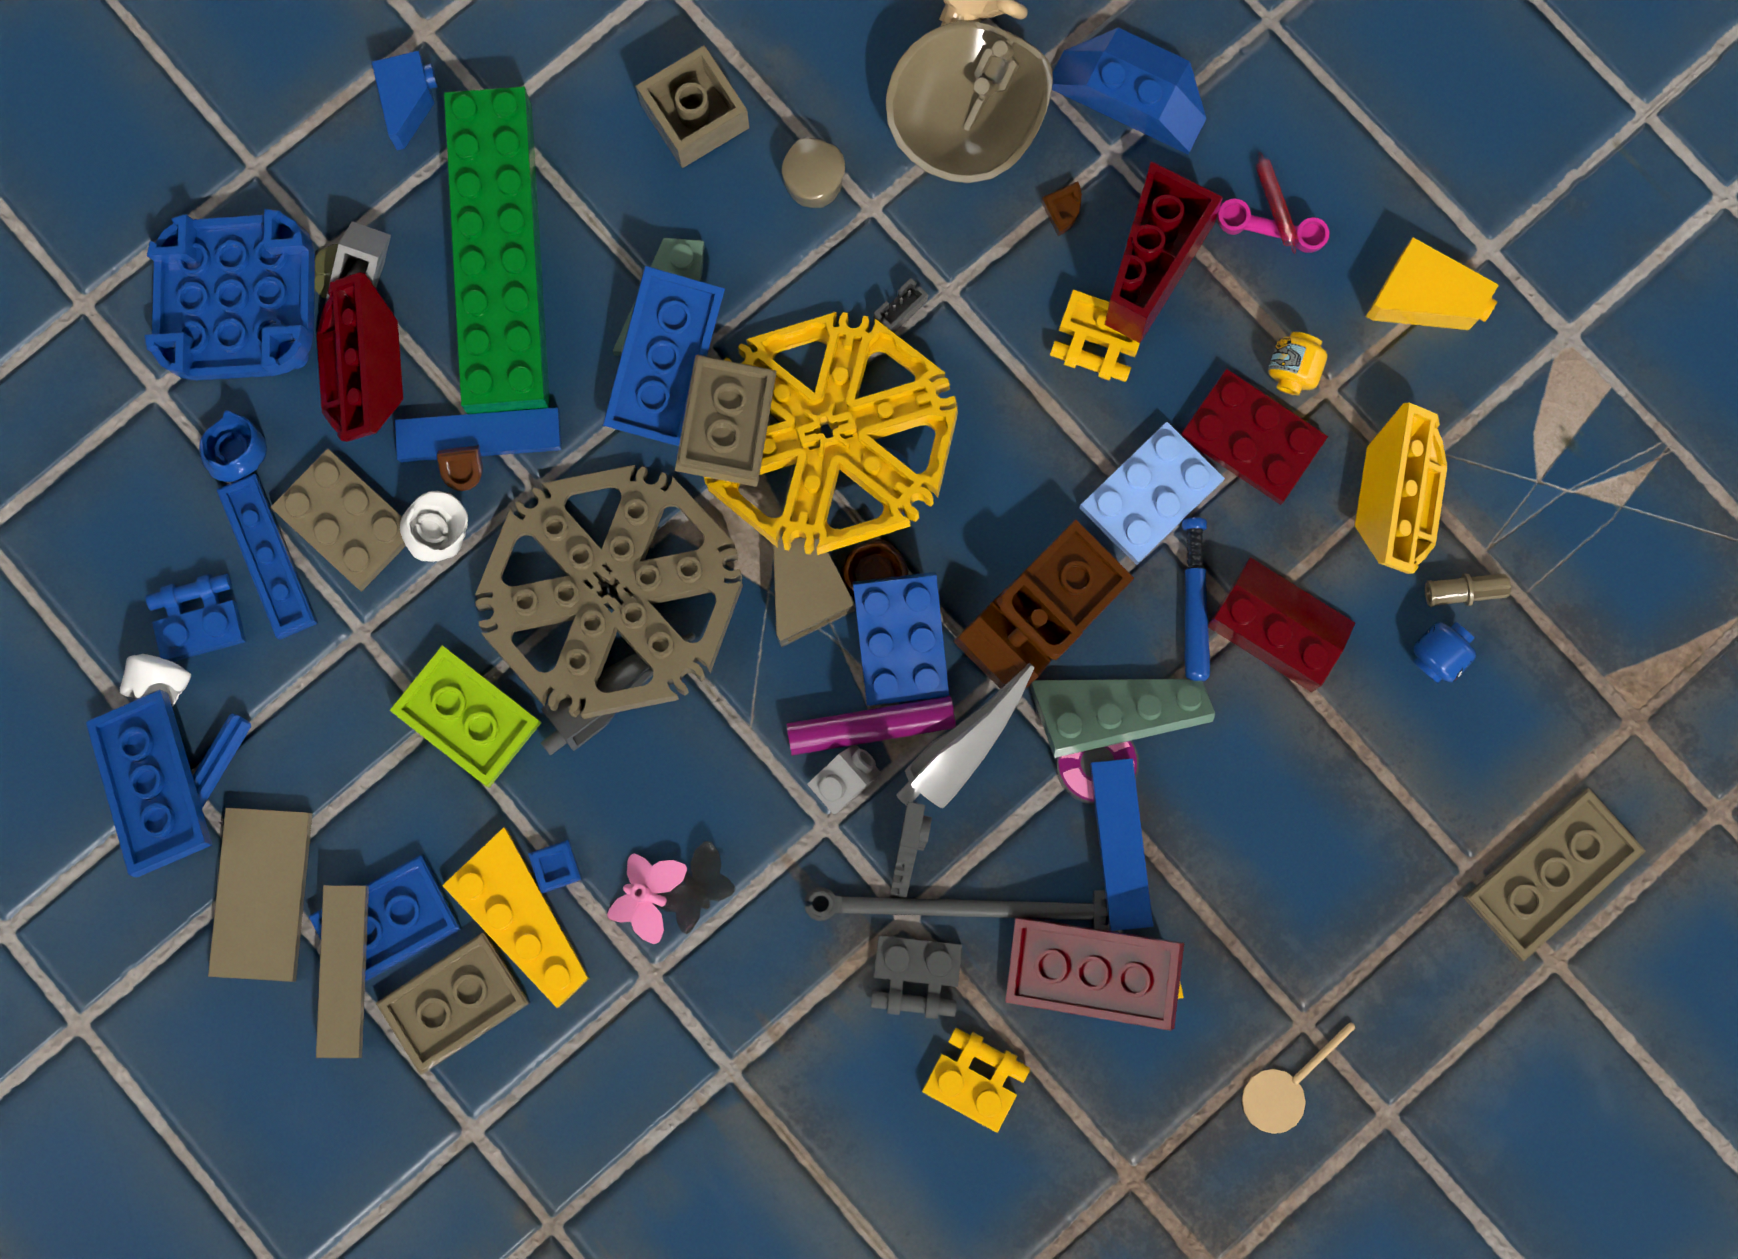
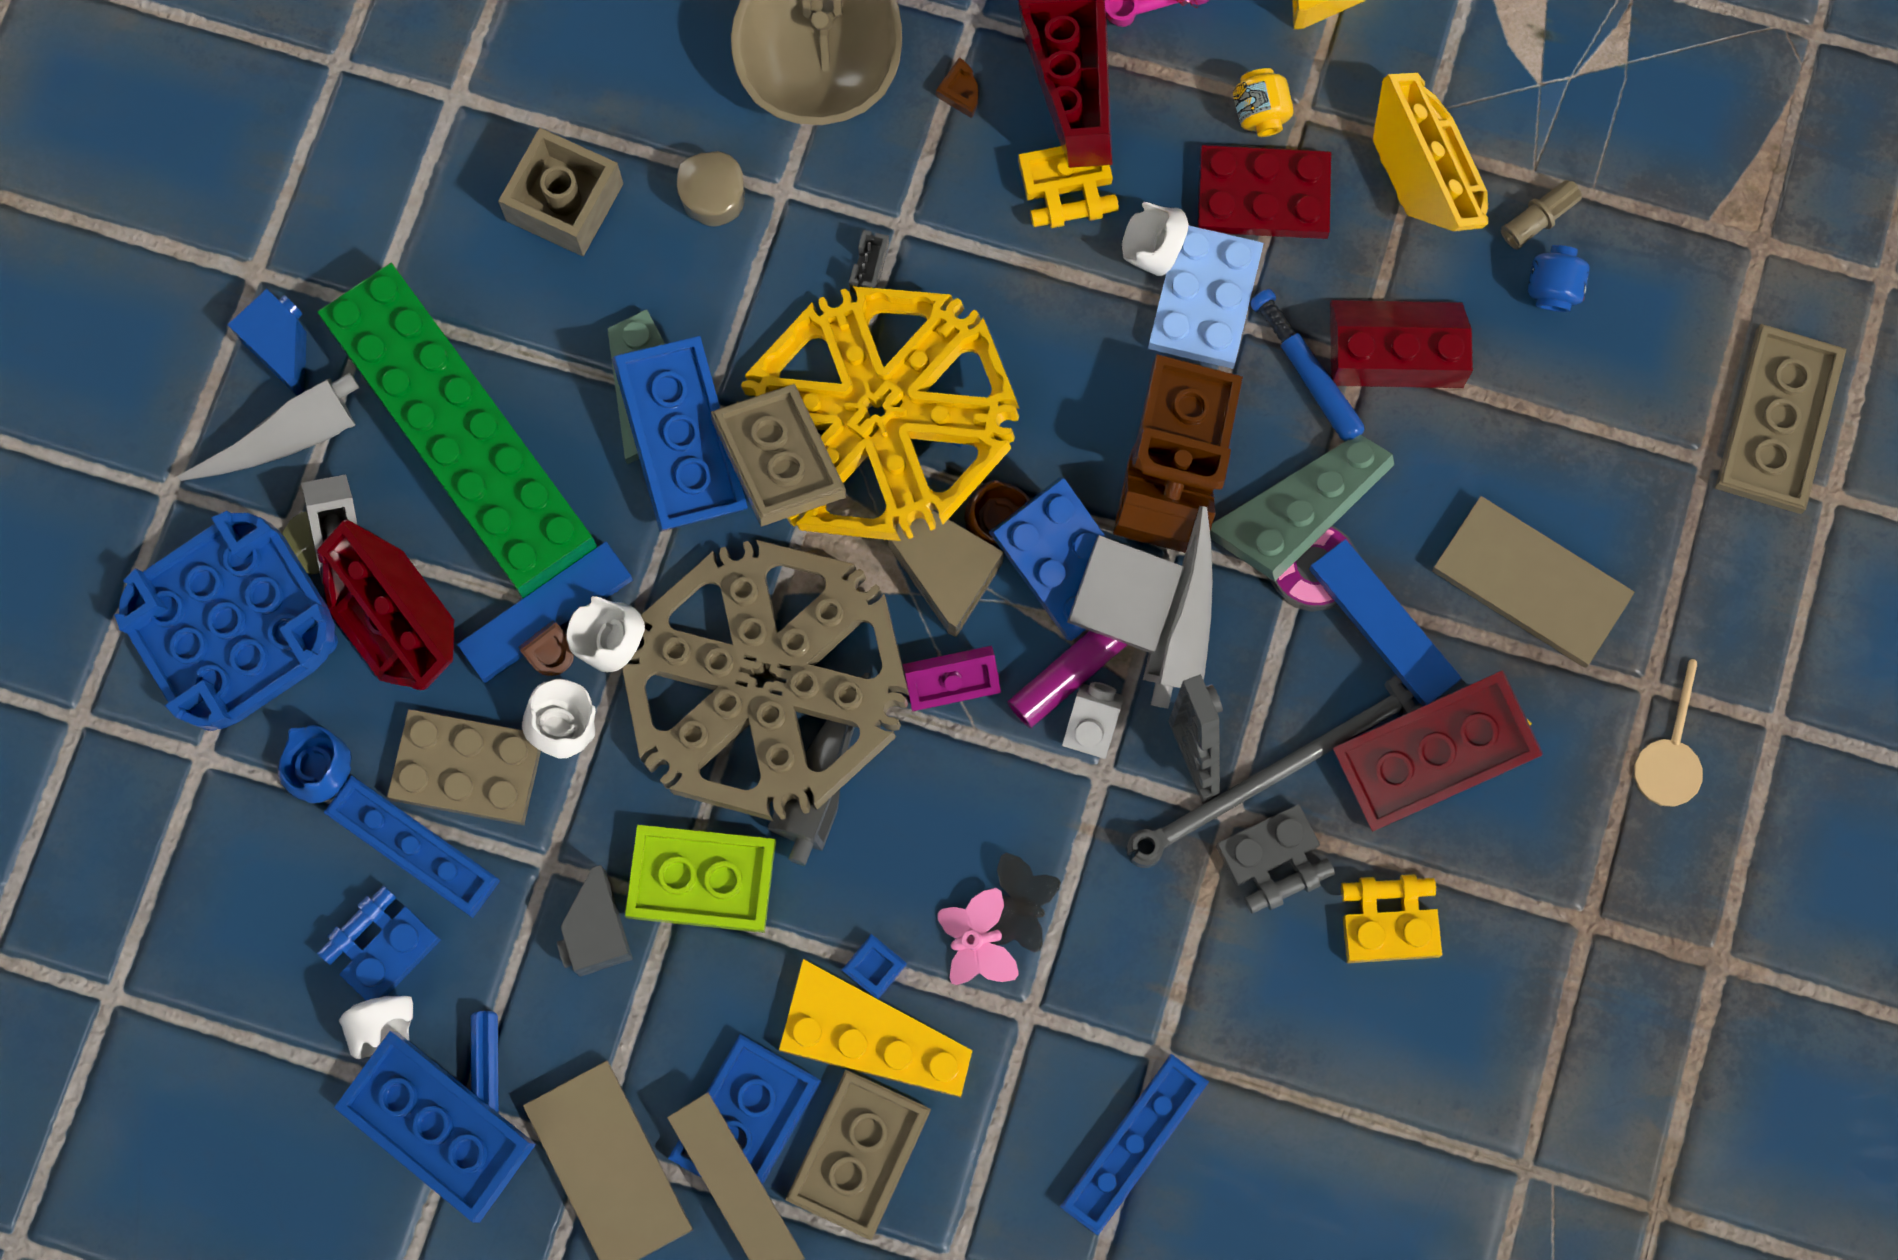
camera: 30 degrees left, 5 degrees down
(362, 704) = (593, 928): none -> dark grey slope
(374, 173) = (290, 429): none -> light grey piece
(509, 480) = (605, 633): none -> white hair
(665, 1128) = (1134, 1144): none -> blue tile
(754, 678) = (952, 678): none -> magenta plate
(928, 697) = (1125, 594): none -> light grey tile
(1137, 423) = (1155, 238): none -> white hair
(1264, 883) = (1533, 582): none -> dark tan tile

